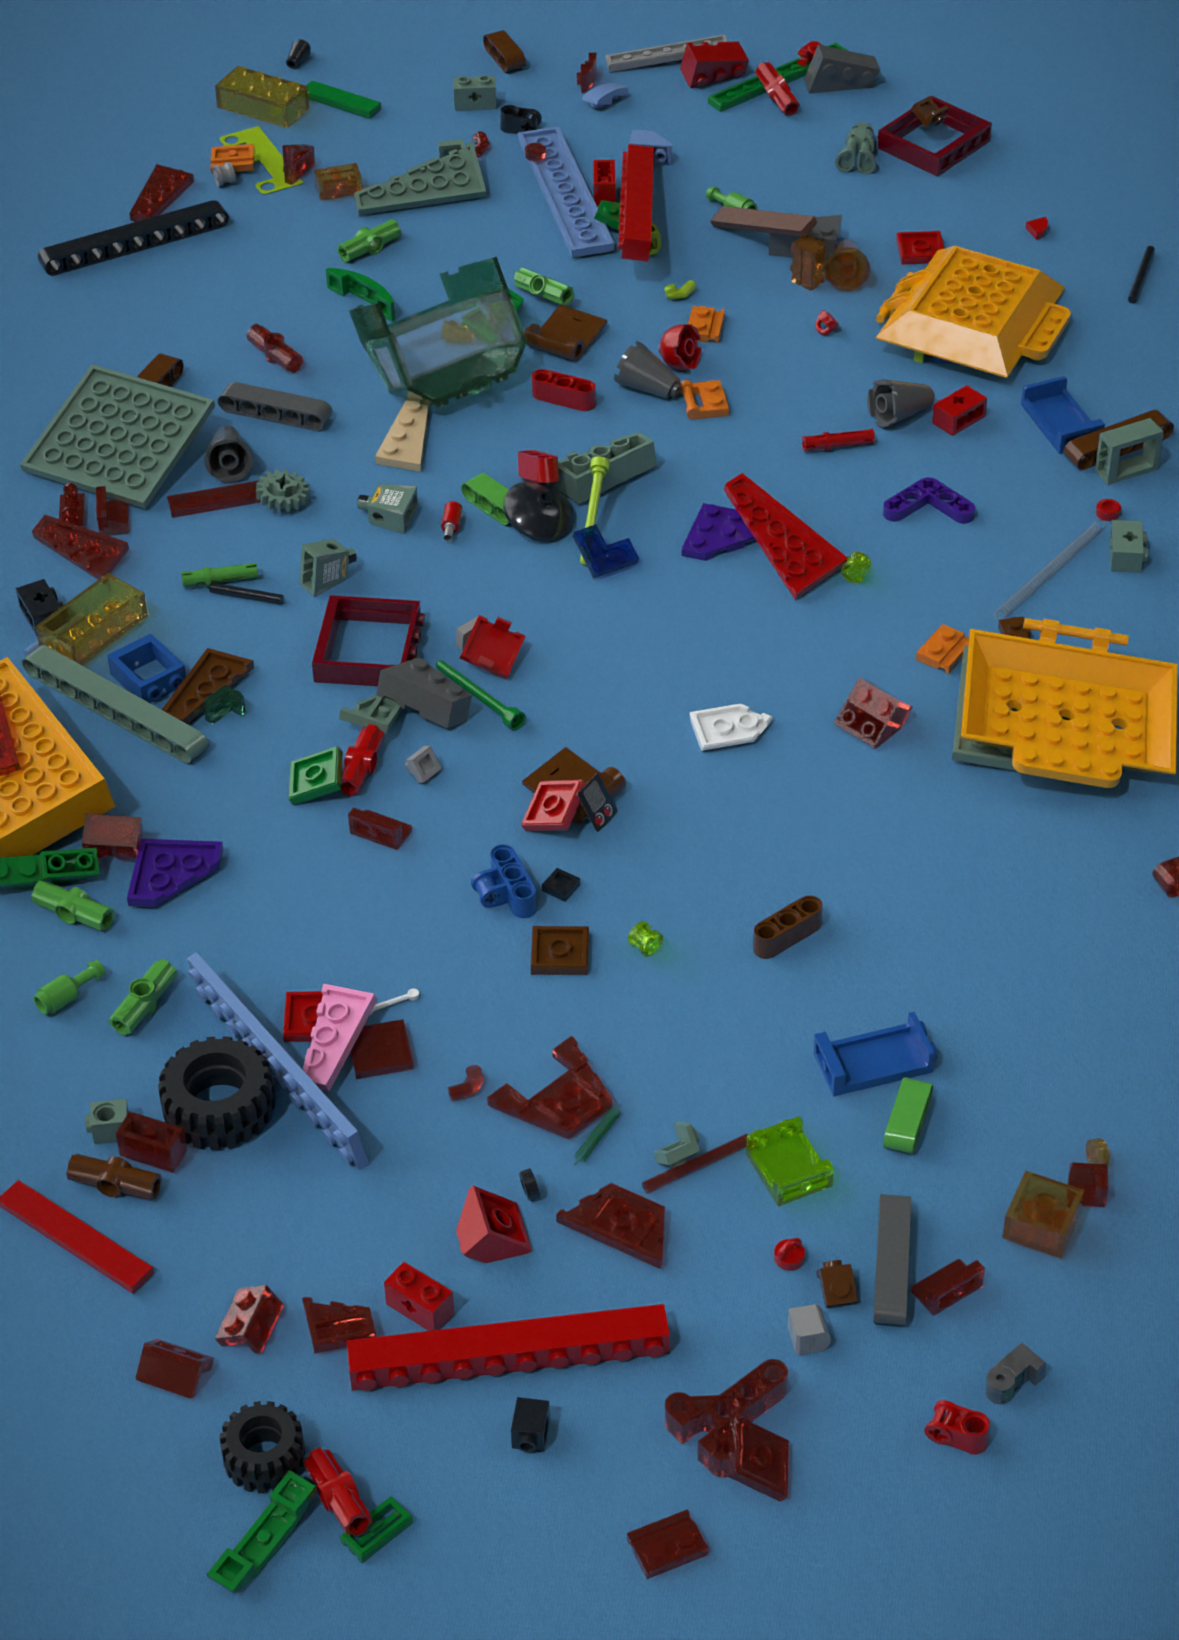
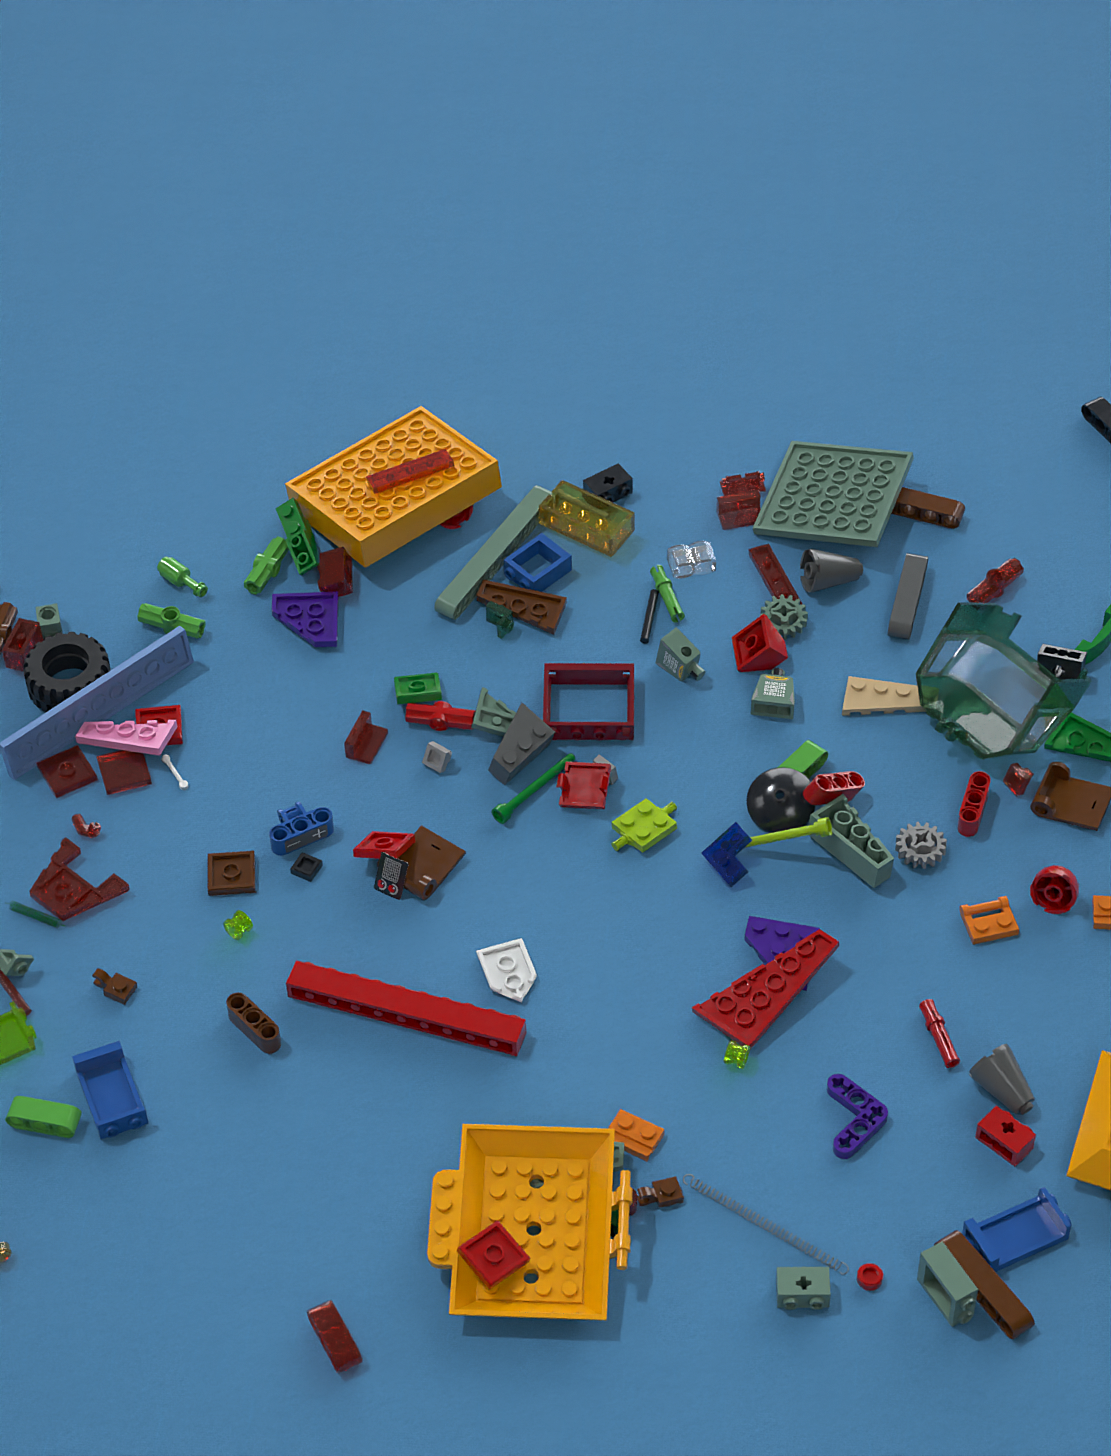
camera: 85 degrees right, 5 degrees up
(81, 546) = (692, 500): clear red wing -> none
(175, 551) = (691, 559): none -> clear brick
(318, 511) = (759, 646): none -> red slope
(370, 1105) = (66, 771): none -> clear red tile
(402, 305) = (1070, 661): none -> black brick
(451, 519) = (764, 741): red piece -> none
(538, 359) = (1017, 778): none -> clear red tile
(548, 615) = (644, 825): none -> lime plate
(608, 426) = (920, 845): none -> light grey gear
(646, 373) = (1007, 862): dark grey cone -> none
(718, 1052) = (116, 987): none -> reddish brown plate
(775, 805) = (406, 1008): none -> red brick
(872, 713) = (528, 1075): clear red slope -> none
(1109, 732) = (493, 1254): none -> red tile

